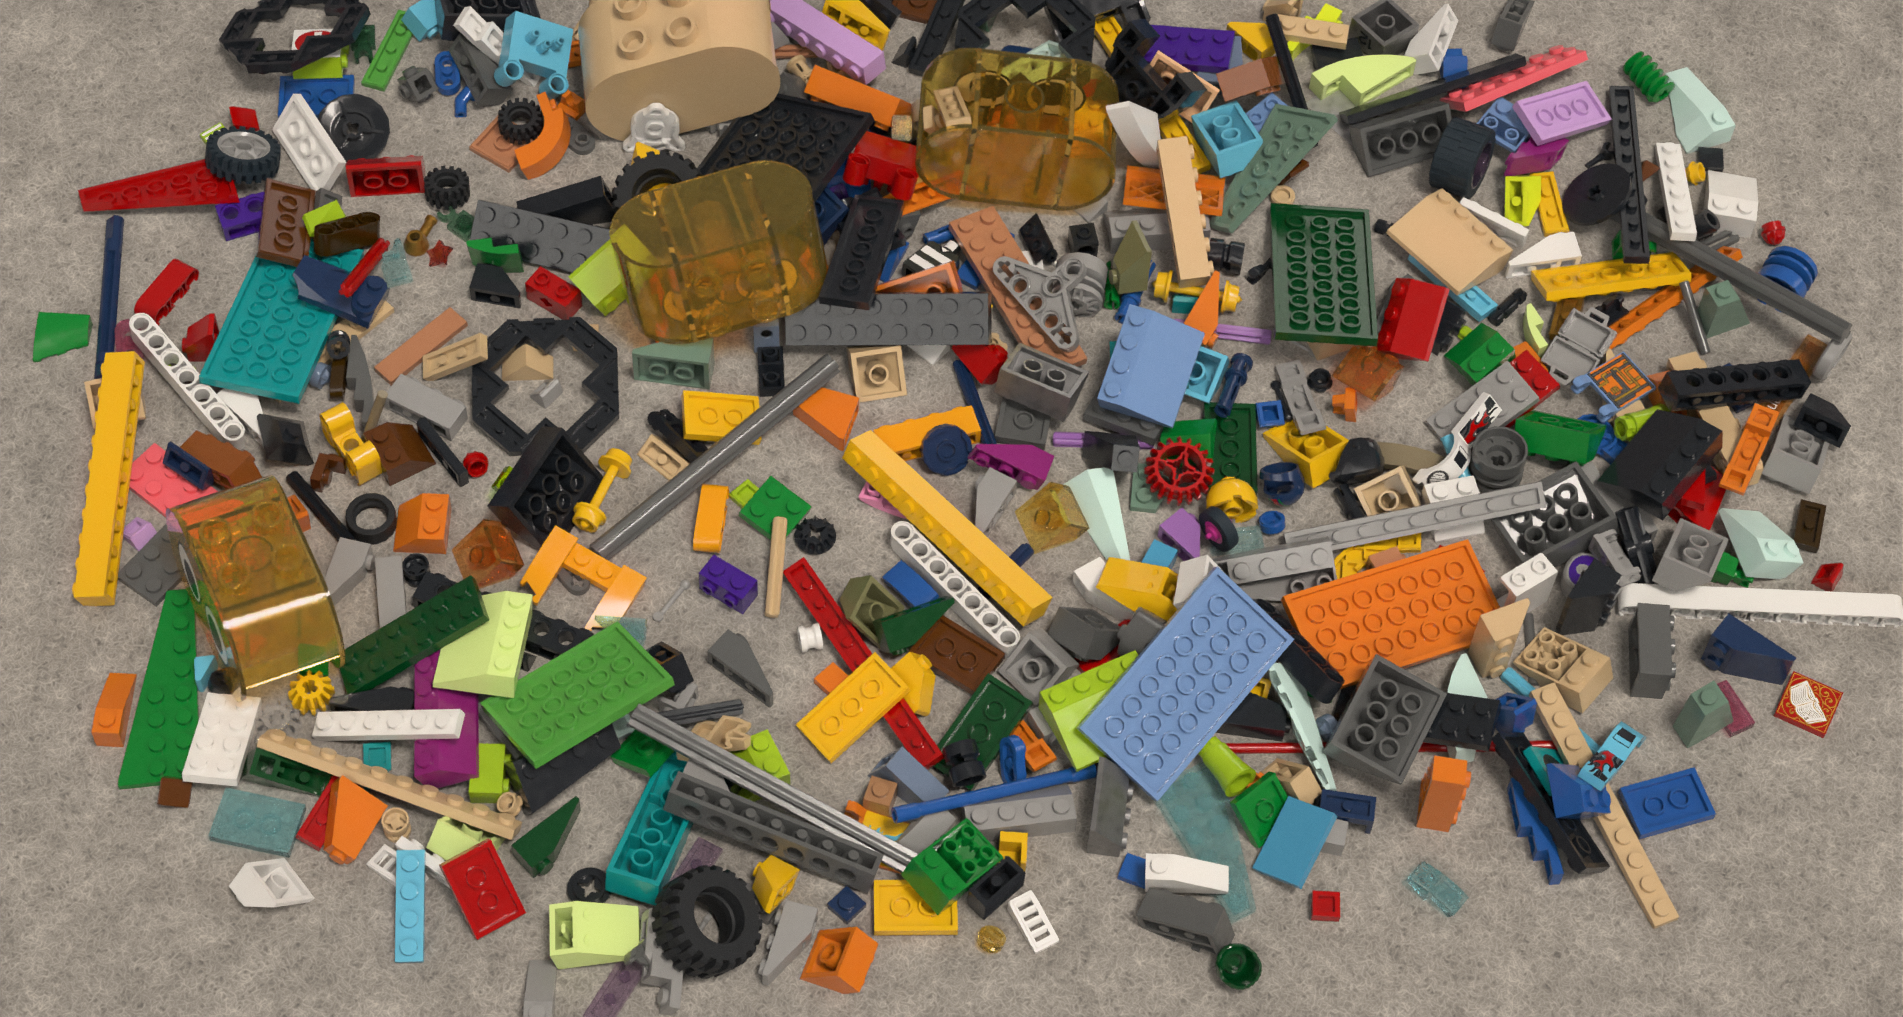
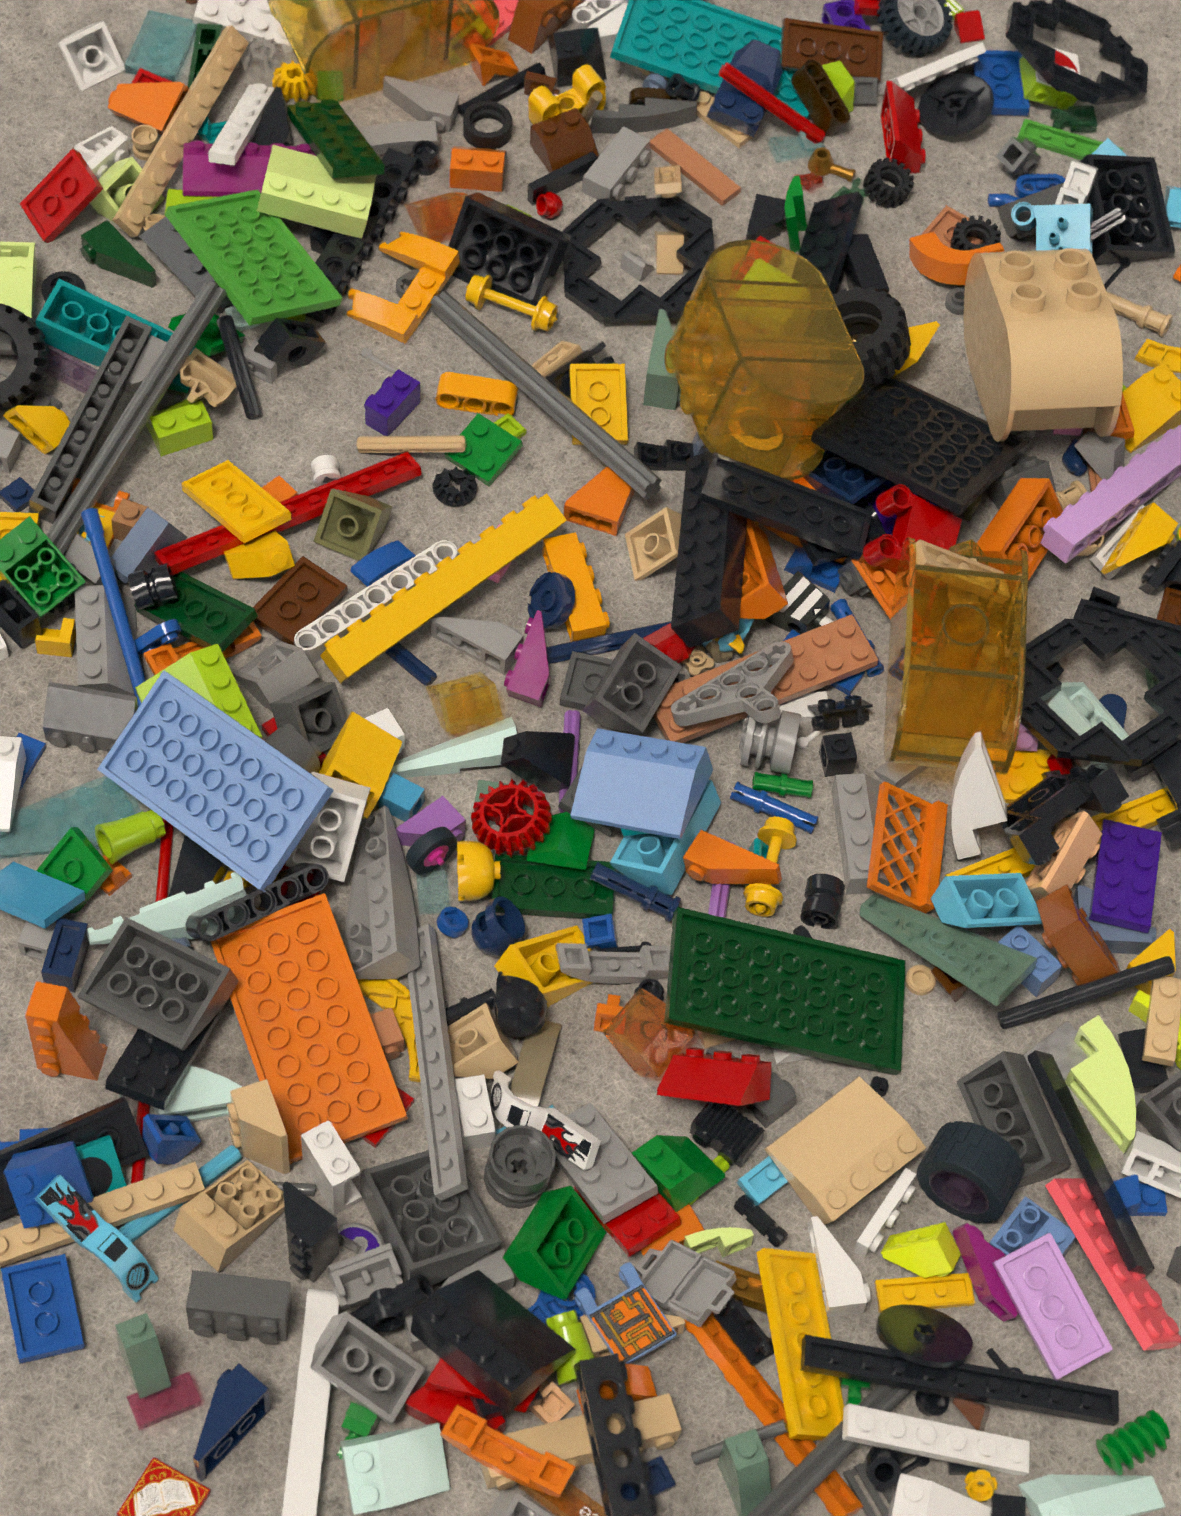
camera: 90 degrees right, 0 degrees up
(410, 906) = (54, 148): medium azure plate -> none
(635, 626) = (349, 319): clear light blue slope -> none
(655, 128) = (966, 349): white tile -> none
(736, 660) = (296, 413): dark grey slope -> none
(908, 626) = (325, 546): dark green slope -> none
(1131, 262) = (796, 786): olive slope -> none
(1183, 212) = (861, 835): tan brick -> none
(1295, 779) = (109, 901): tan slope -> none

